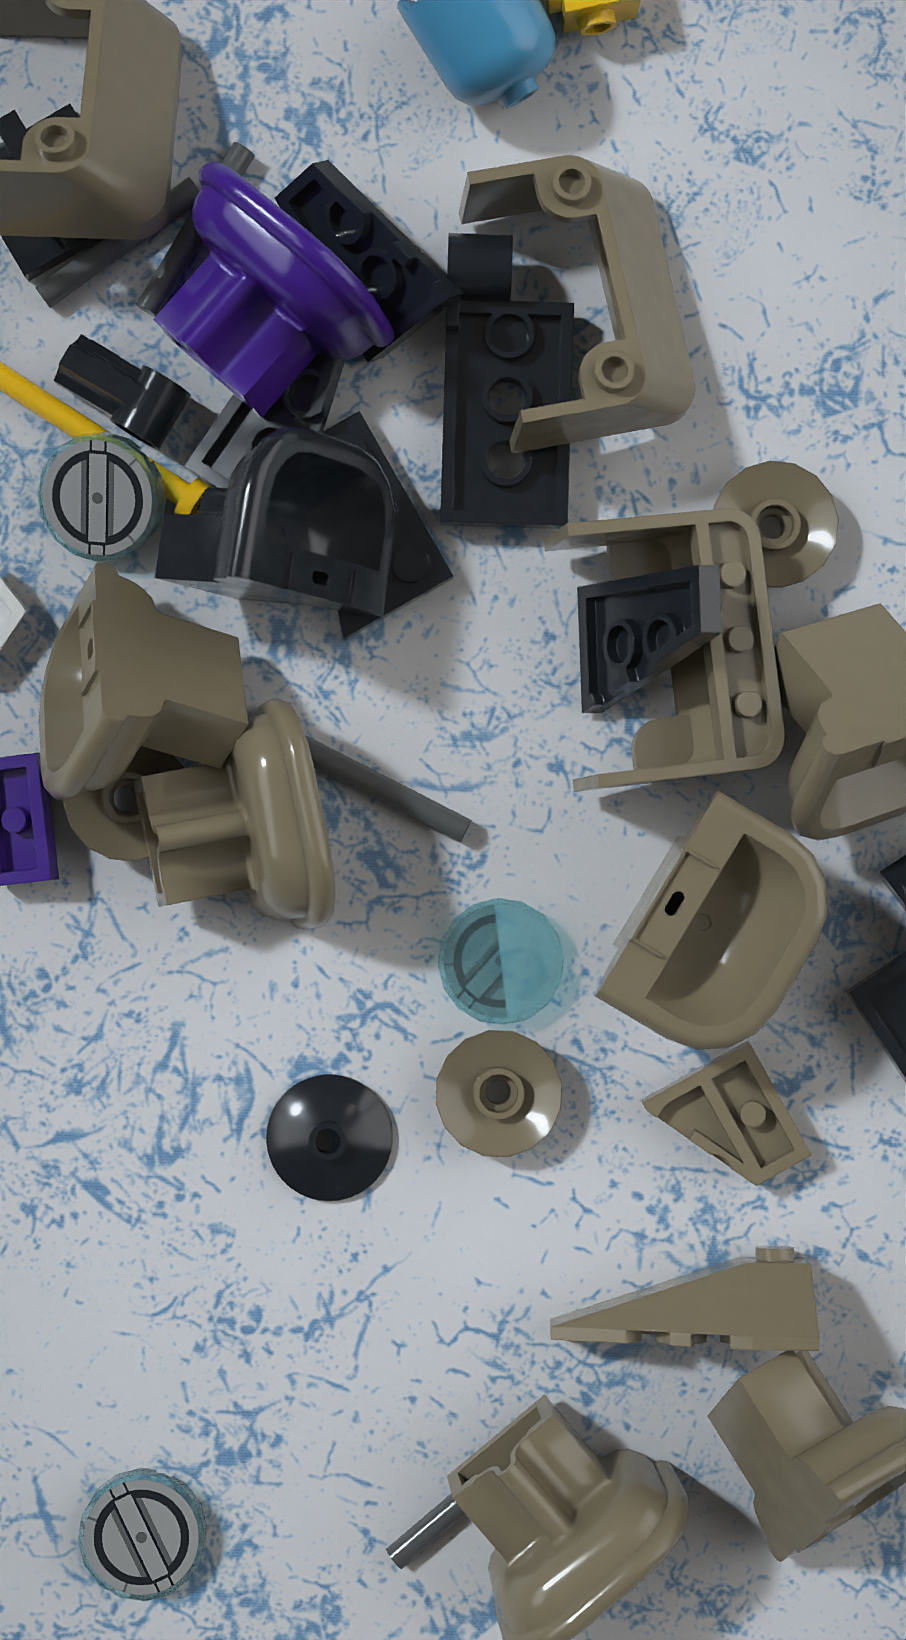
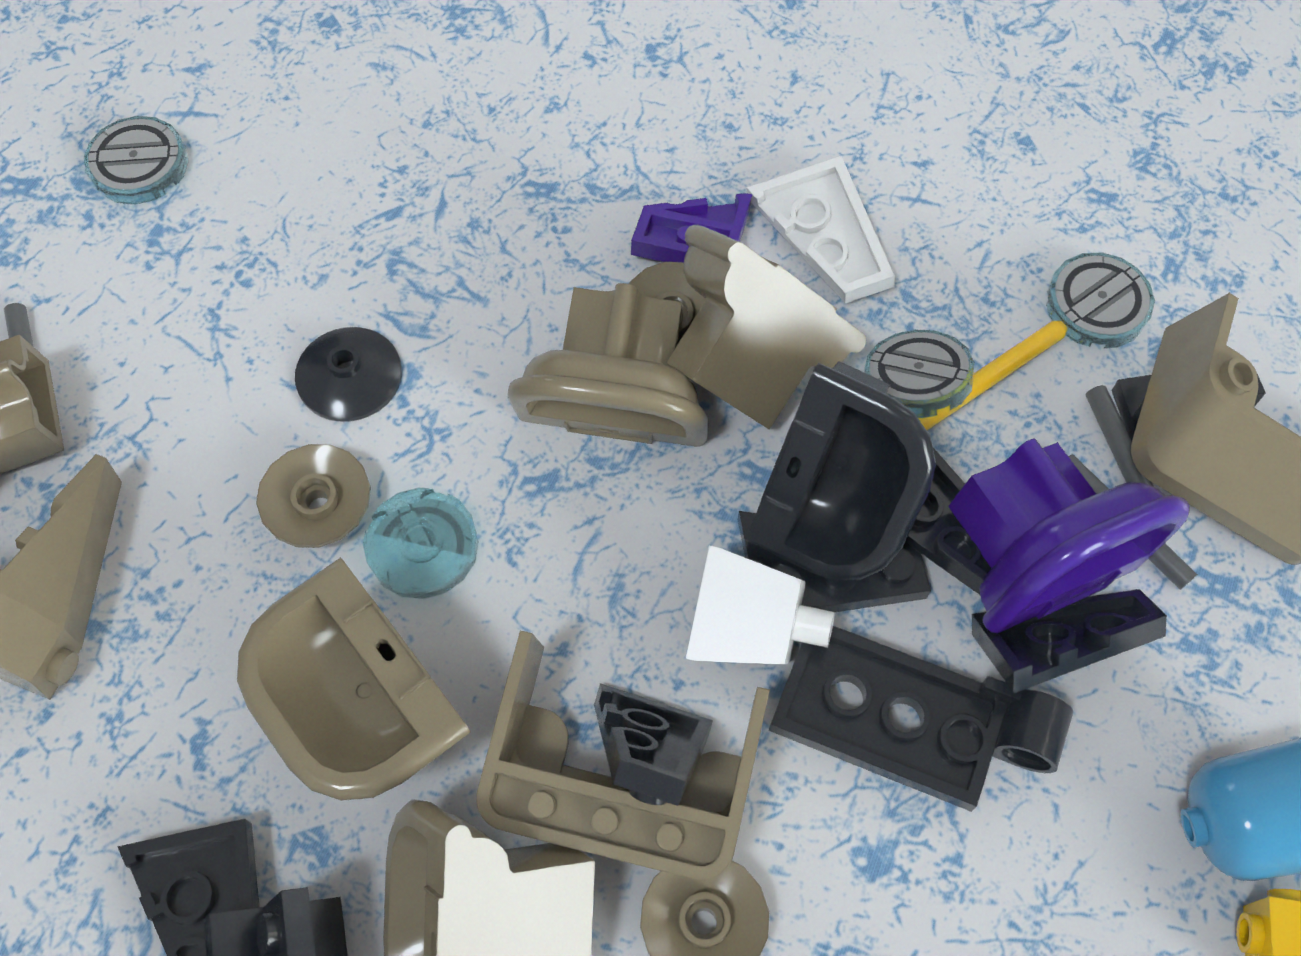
camera: 115 degrees right, 25 degrees down
(135, 398) = (993, 424): black piece -> none
(388, 791) = (602, 502): dark grey bar -> none
(465, 578) = (752, 613): none -> white torso
(647, 370) = (904, 850): dark tan windscreen -> none
(733, 1115) = (190, 681): dark tan wing -> none

